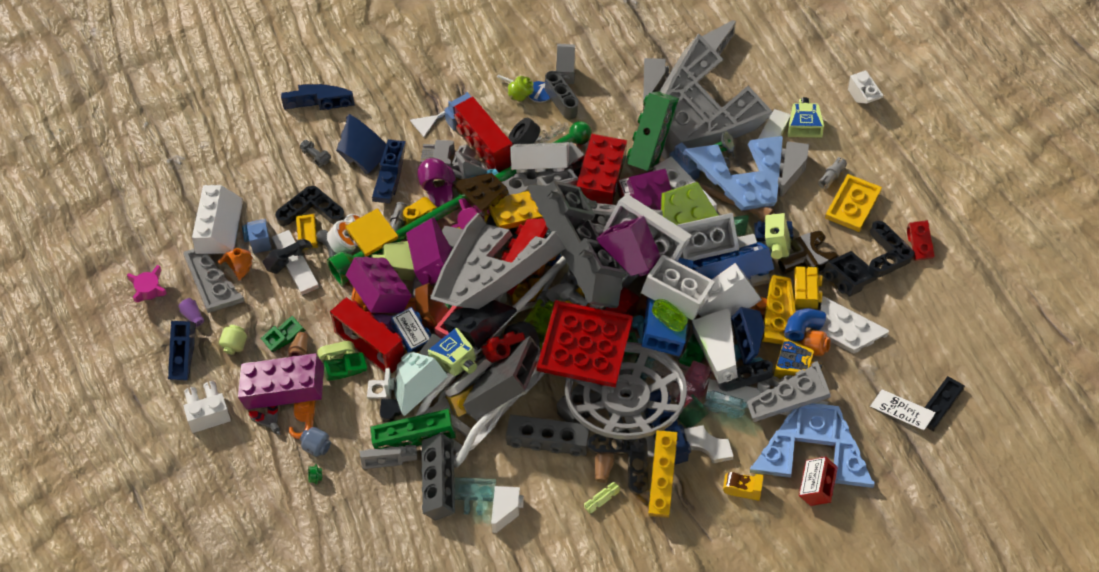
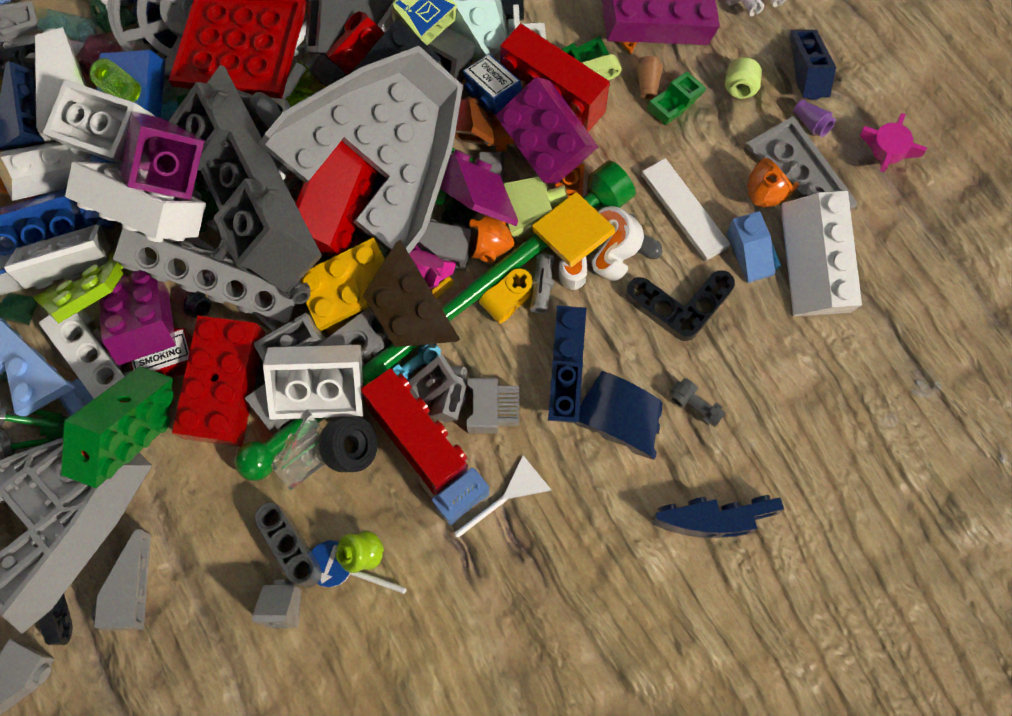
camera: 175 degrees right, 15 degrees up
(278, 258) = (708, 199): black piece -> none
(307, 229) = (679, 262): yellow tile -> none
(436, 169) = (485, 345): magenta piece -> none

